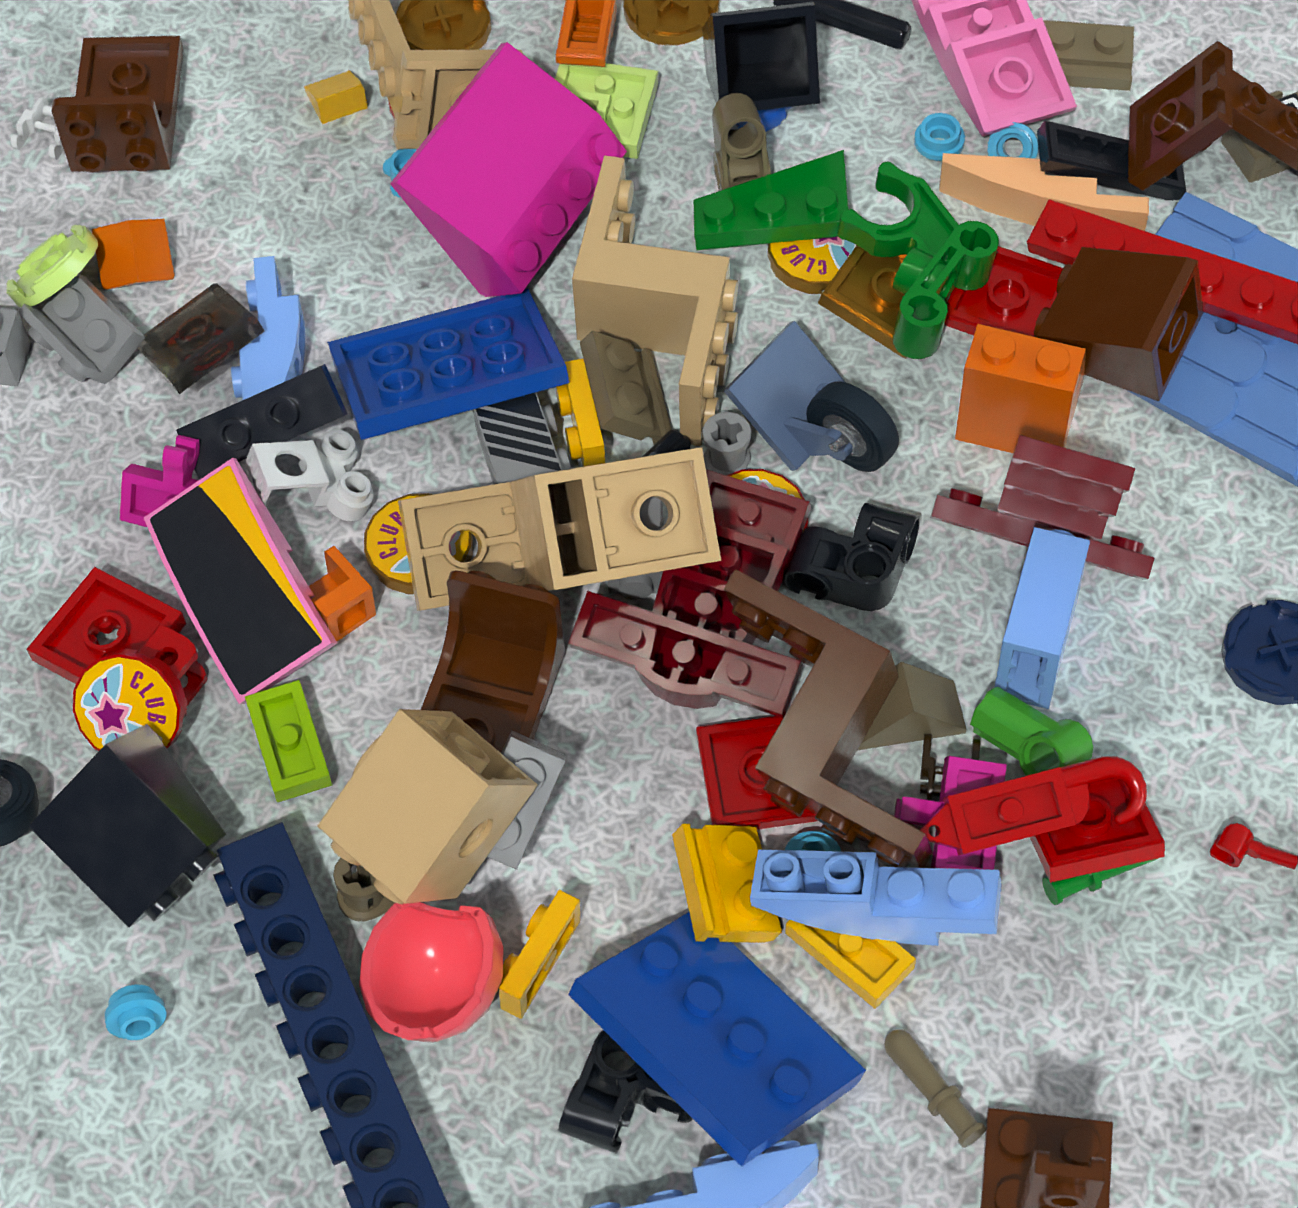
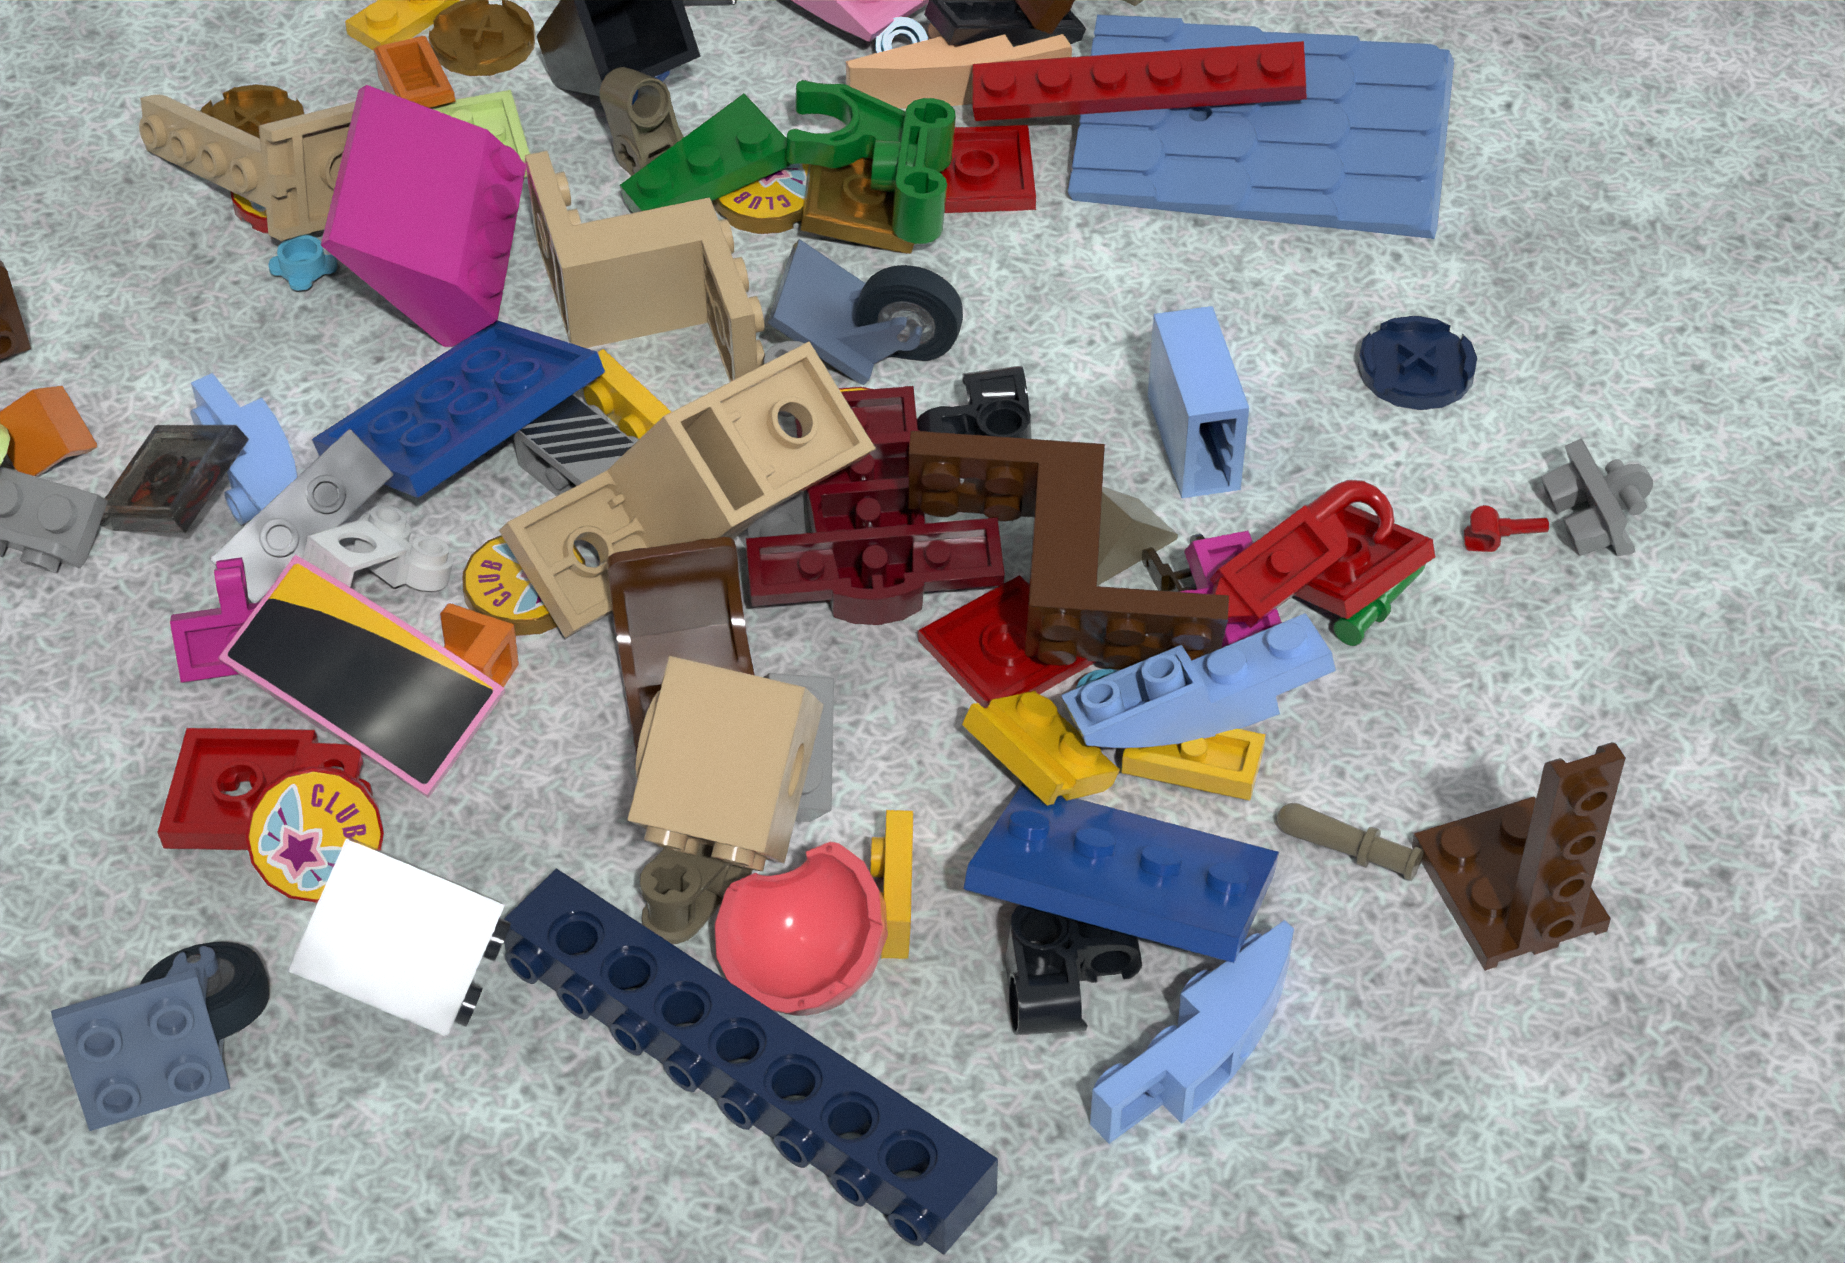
camera: 30 degrees left, 10 degrees down
(134, 1012) = (499, 1119): medium azure plate -> none
(288, 741) = (504, 806): lime plate -> none
(337, 96) = (178, 224): yellow slope -> none
(624, 387) = (653, 361): dark tan plate -> none
(939, 126) = (823, 58): medium azure plate -> none
(1018, 388) = (1053, 225): orange slope -> none
(1029, 733) = (1236, 506): bright green piece -> none
(1054, 491) = (1155, 261): dark red slope -> none
(1128, 314) = (1106, 131): reddish brown slope -> none

